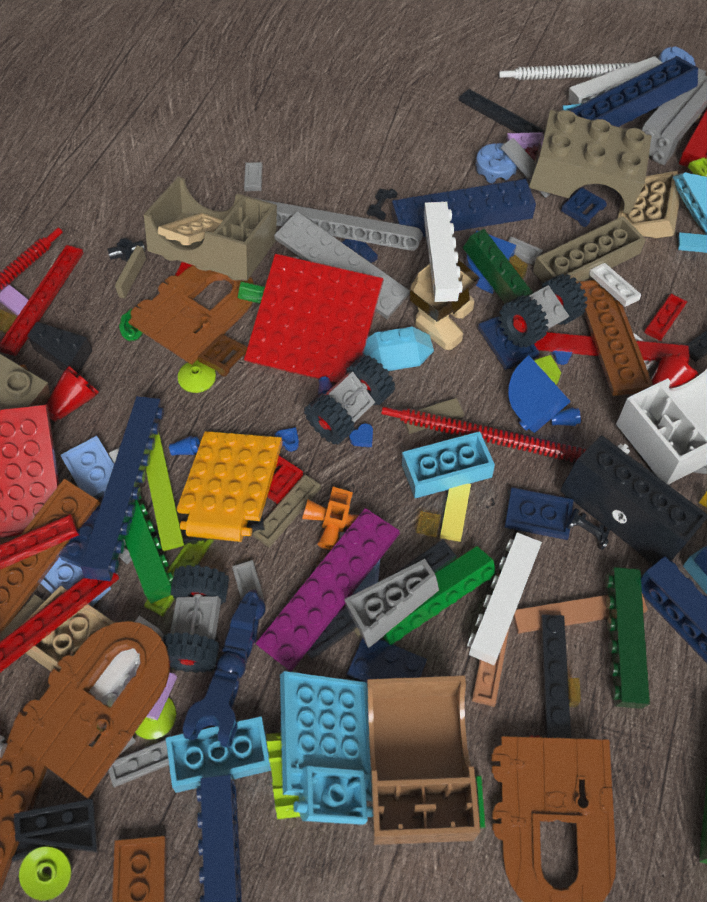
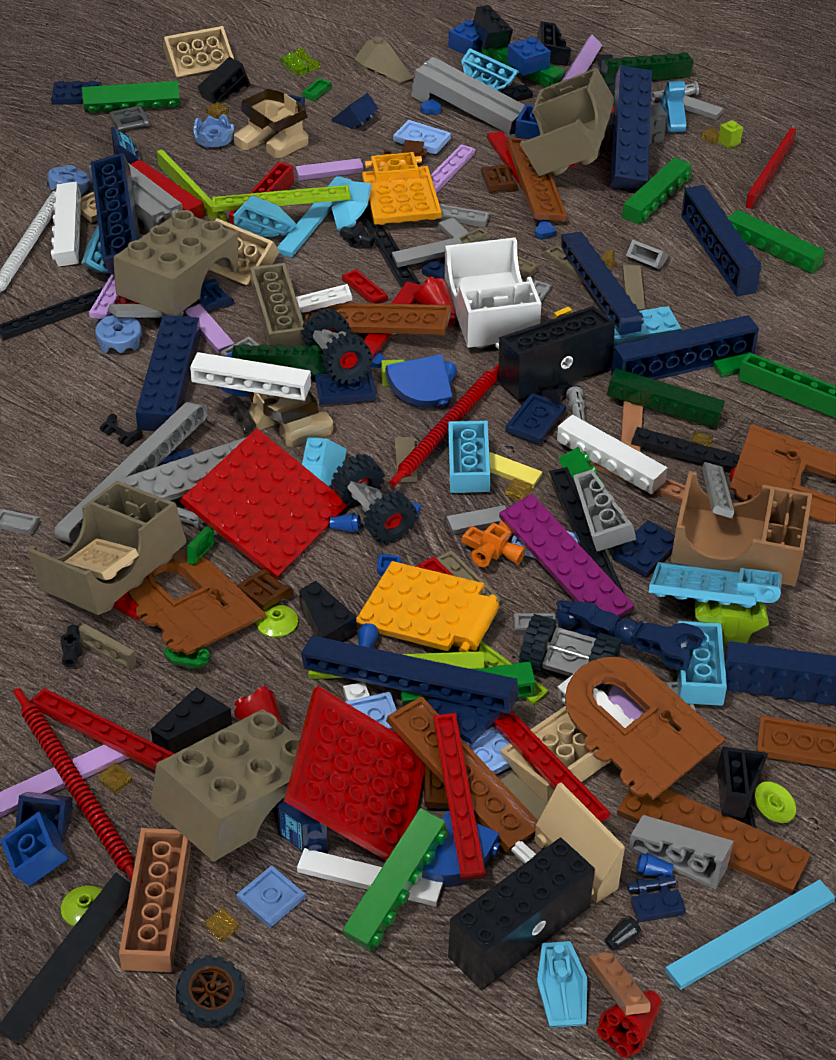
camera: 75 degrees left, 15 degrees down
(200, 406) = (326, 614): none -> black wedge
(371, 496) = (480, 519): none -> light grey tile
(479, 721) = (717, 490): none -> light grey tile
(539, 220) = (210, 329): none -> lavender tile
(579, 549) = (576, 403): none -> light grey pin

